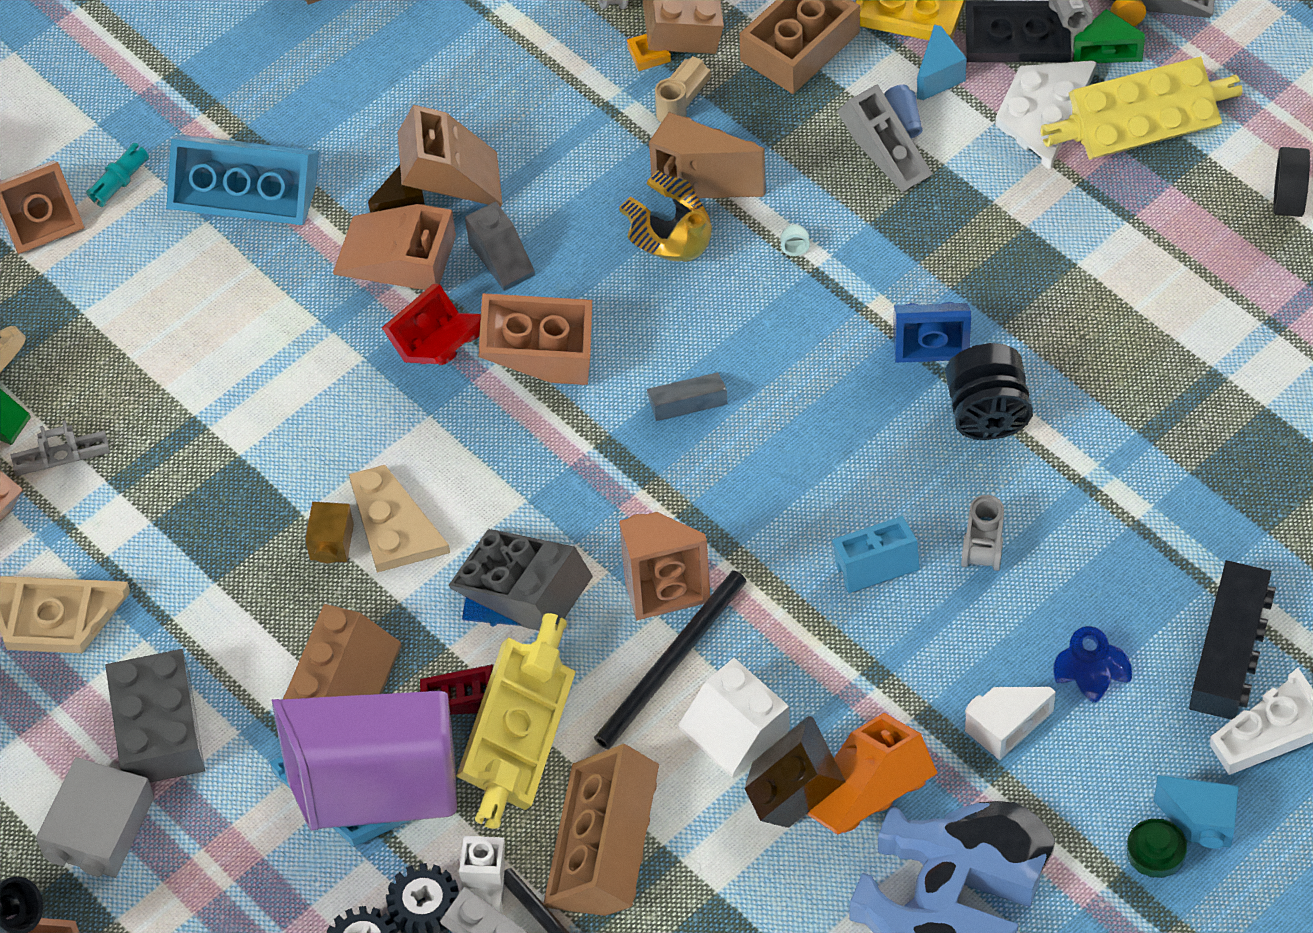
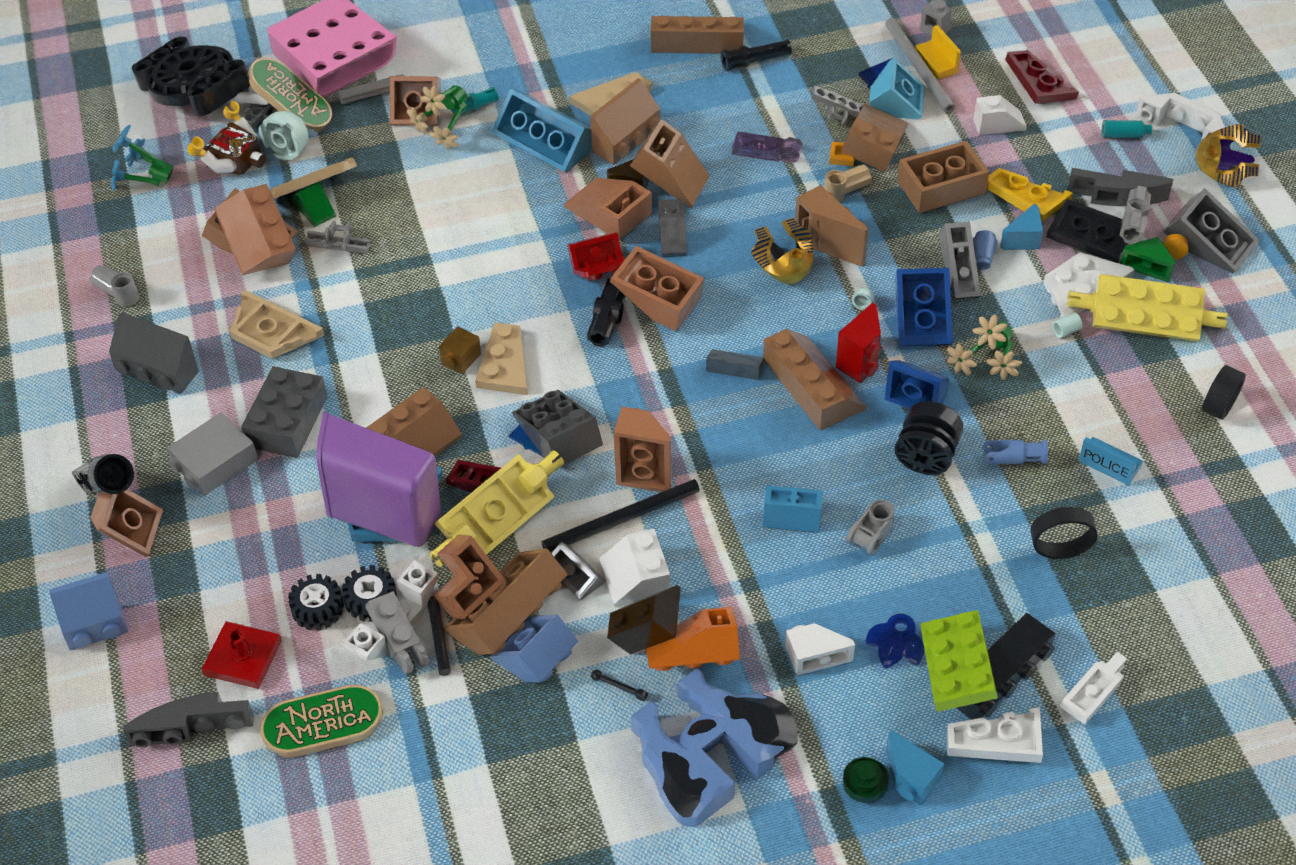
camera: 25 degrees right, 5 degrees down
(85, 197) = (451, 99): none -> tan plant
(298, 92) = (594, 98): none -> tan wing
(349, 125) = (624, 122): none -> medium nougat slope
(486, 397) = (606, 314): none -> black piece
(547, 81) = (766, 147): none -> clear purple hinge
(549, 824) = (473, 577): none -> nougat brick
(675, 759) = (581, 576): none -> flat silver slope
(678, 874) = (536, 648): none -> medium blue slope
(767, 872) = (640, 694): none -> black hinge
(794, 376) = (810, 378): none -> medium nougat slope
(838, 306) = (860, 345): none -> red slope
(877, 221) = (923, 307): none -> blue slope
(989, 224) = (997, 337): none -> tan plant
(1058, 170) = (1067, 325): none -> light aqua hinge
(1094, 362) = (1015, 452): none -> medium blue piece
(1183, 655) = (958, 661): none -> lime plate
(1204, 428) = (1063, 516): none -> black tyre
(1205, 325) = (1109, 460): none -> dark azure panel

